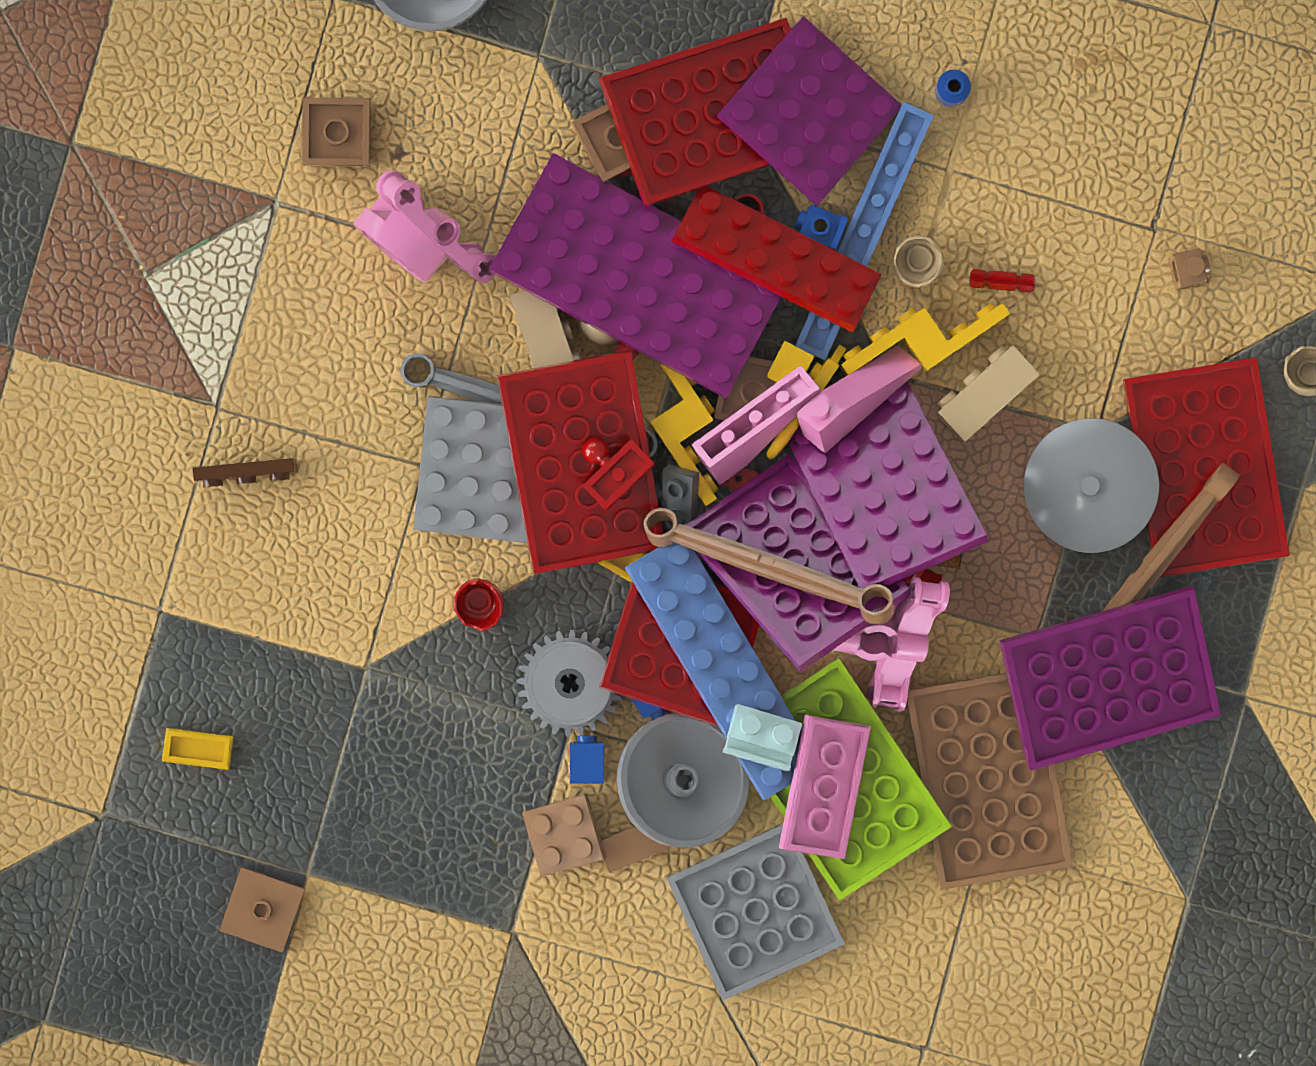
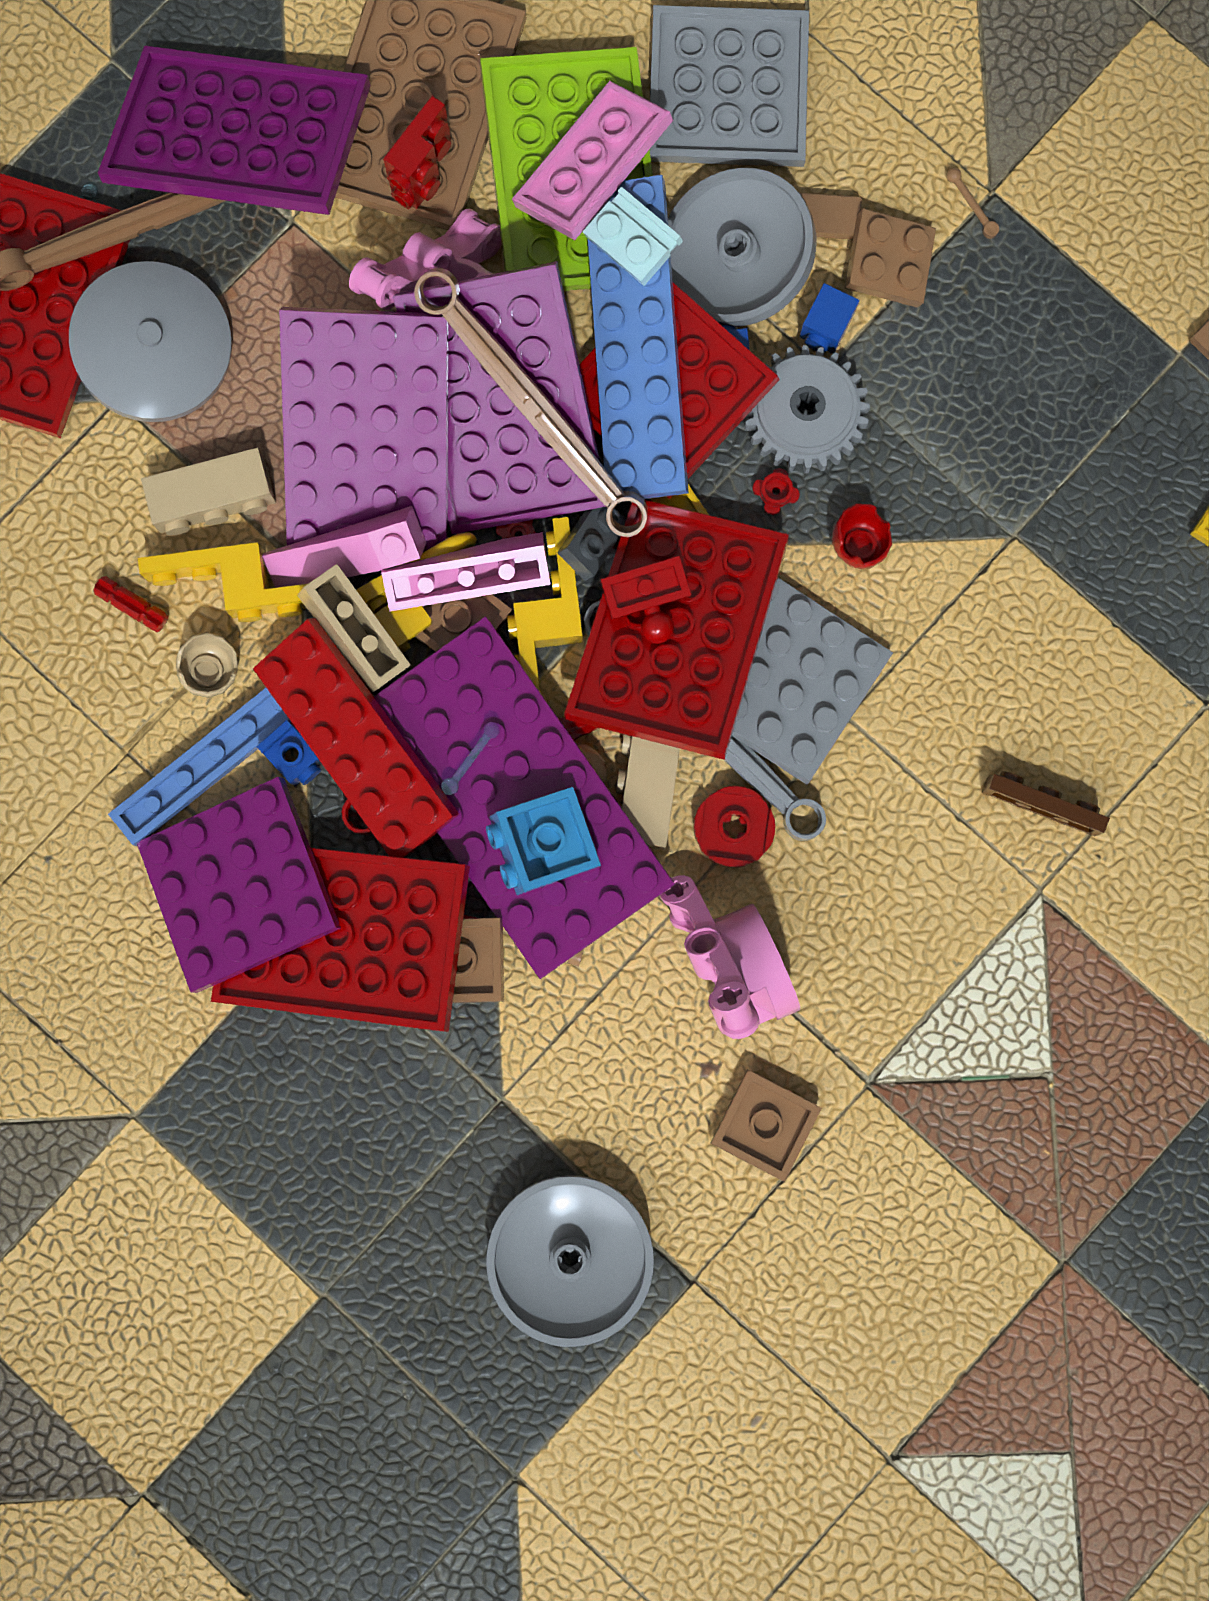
camera: 155 degrees left, 5 degrees down
(450, 329) = (720, 808): none -> red plate
(499, 900) = (990, 228): none -> medium nougat hinge
(552, 611) = (780, 480): none -> red plate
(599, 248) = (542, 841): none -> dark azure plate
(688, 259) = (450, 785): none -> clear light blue hinge
(818, 337) = (353, 628): none -> tan brick
(950, 98) = (82, 836): blue brick -> none
(956, 711) = (414, 156): none -> red plate

